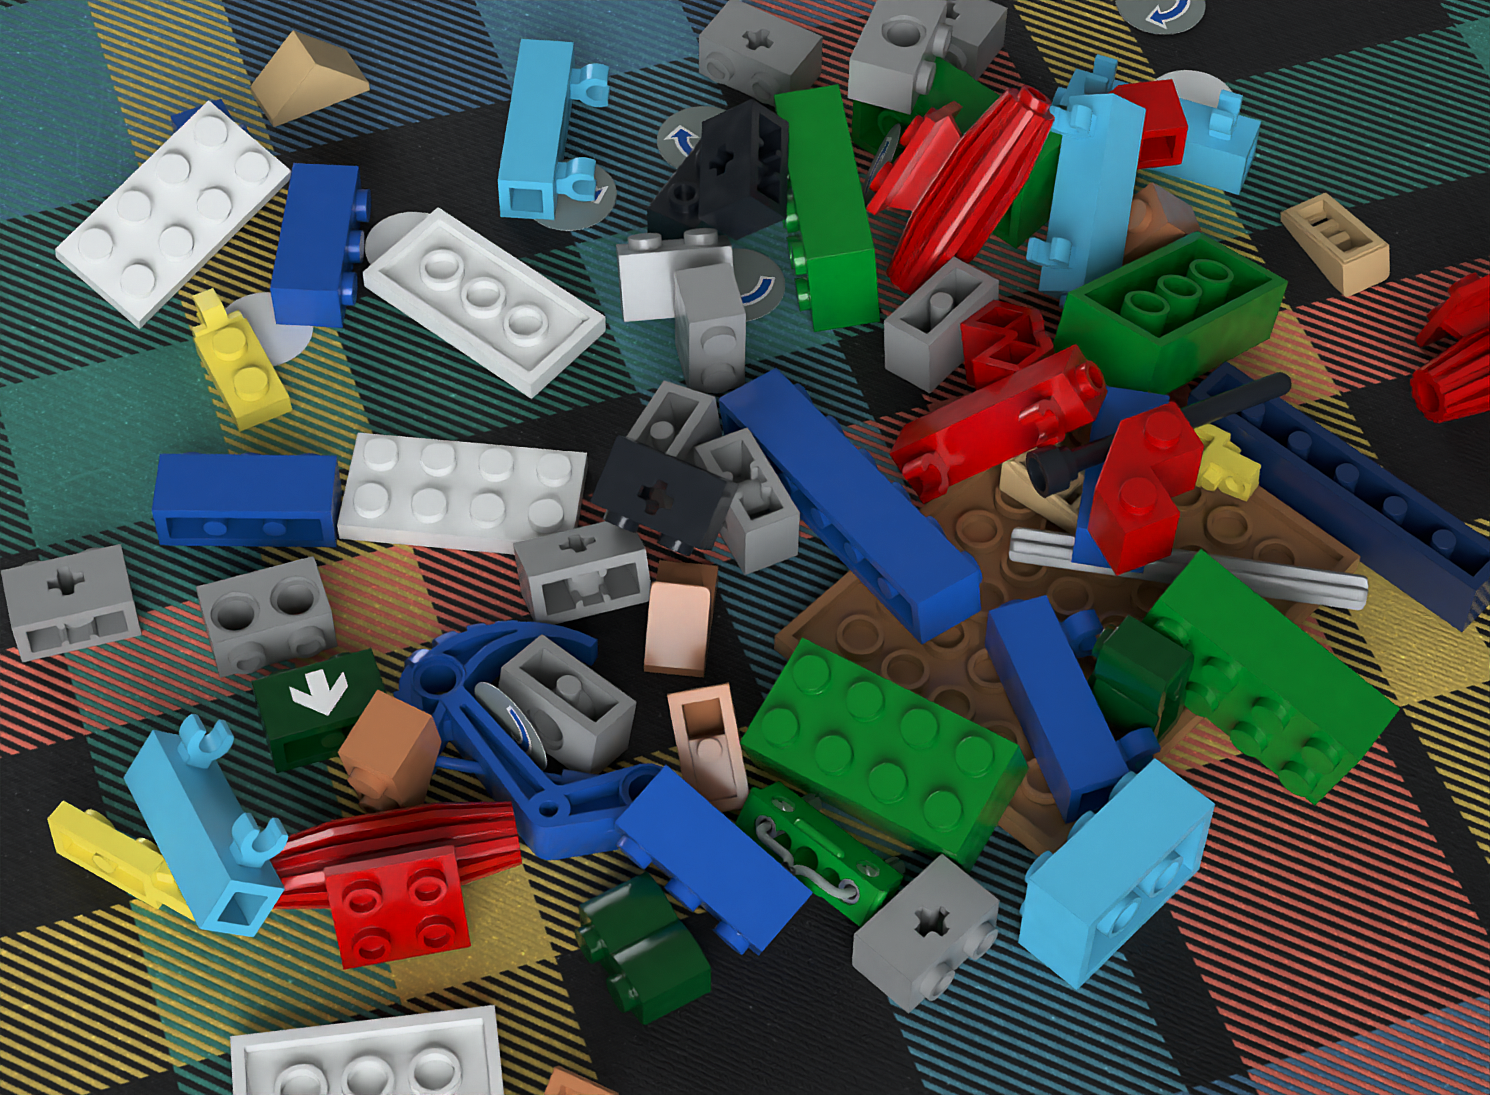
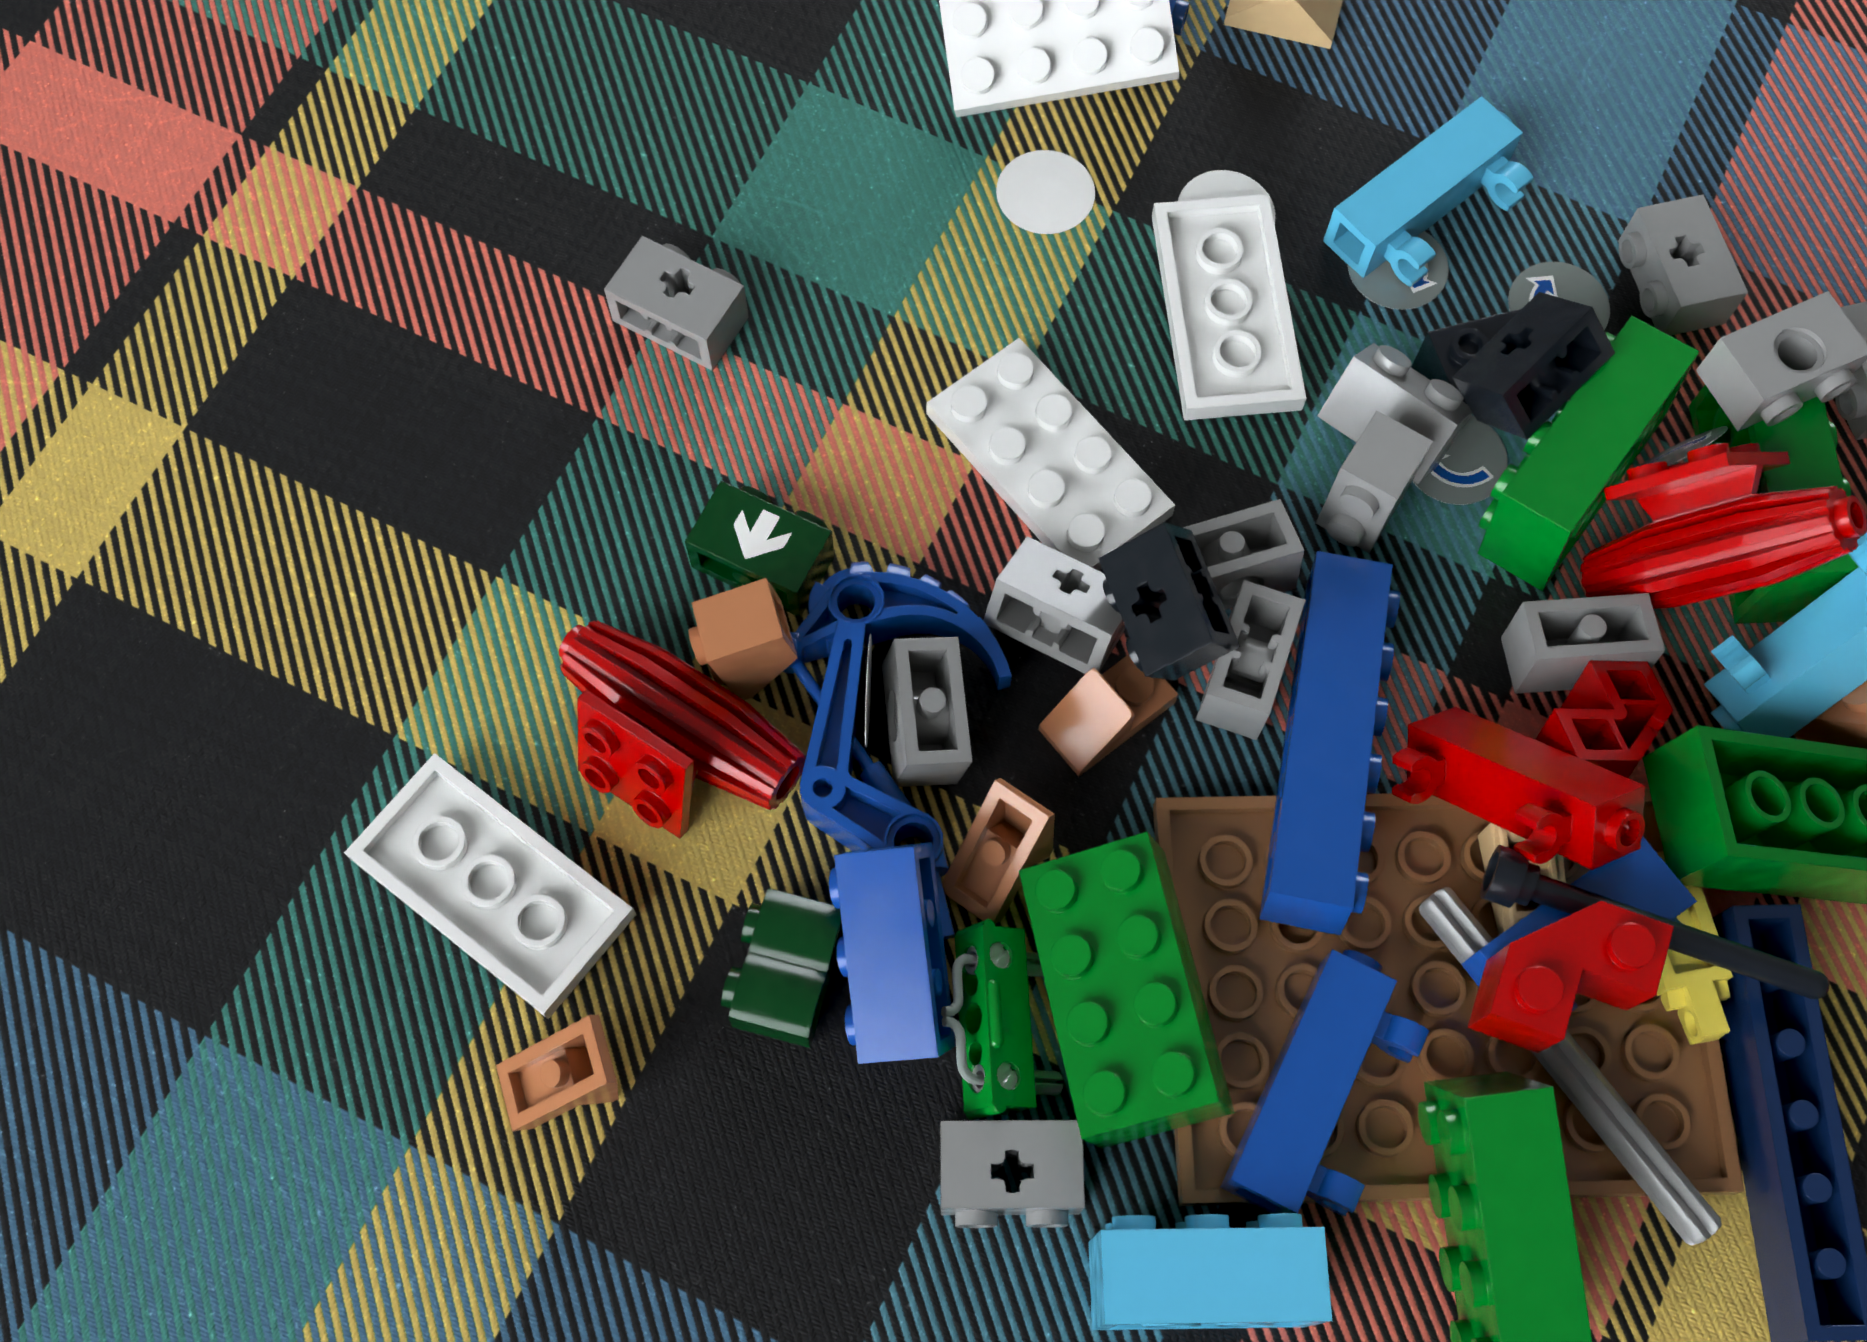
camera: 45 degrees right, 15 degrees up
(124, 862) = (513, 555): light yellow hinge -> none
(203, 829) = (564, 576): medium azure brick -> none
(237, 364) = (992, 205): light yellow hinge -> none
(247, 500) = (881, 324): blue brick -> none
(265, 608) = (806, 424): light grey brick -> none
(319, 245) = (1147, 152): blue brick -> none
(1139, 678) = (1395, 1134): dark green brick -> none

